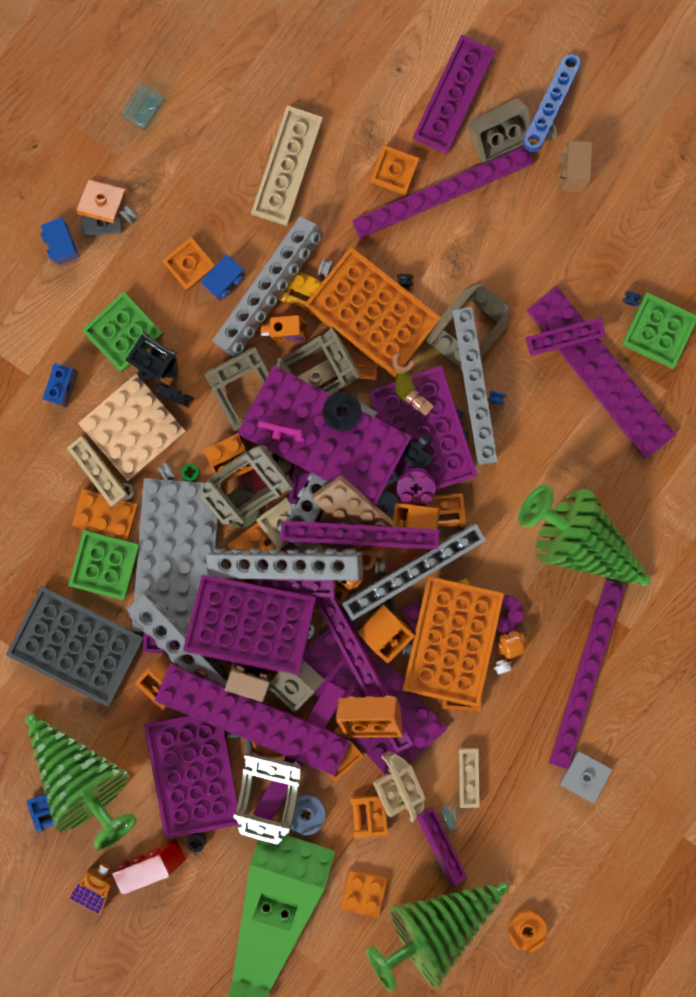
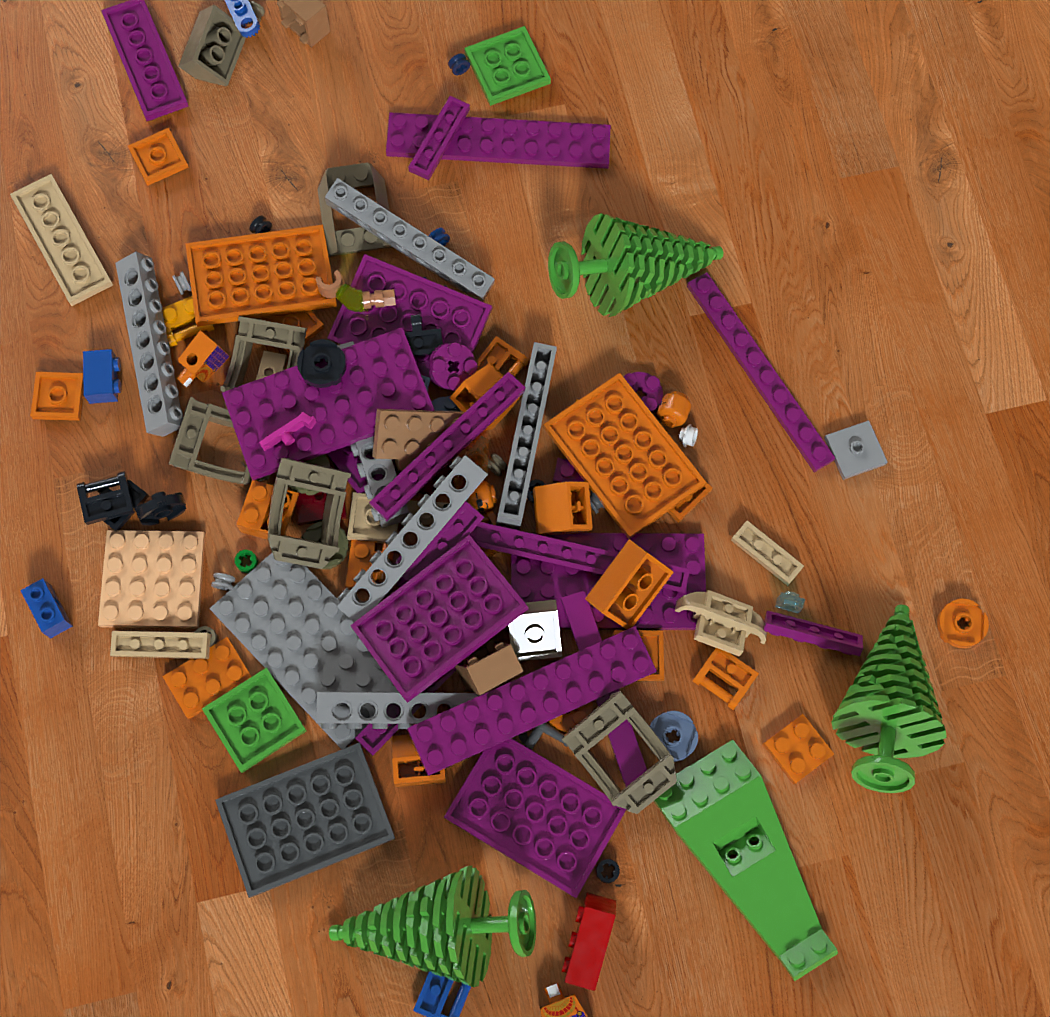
camera: 55 degrees left, 15 degrees down
(119, 329) = (52, 509): bright green plate -> none
(442, 192) = (216, 138): magenta plate -> none

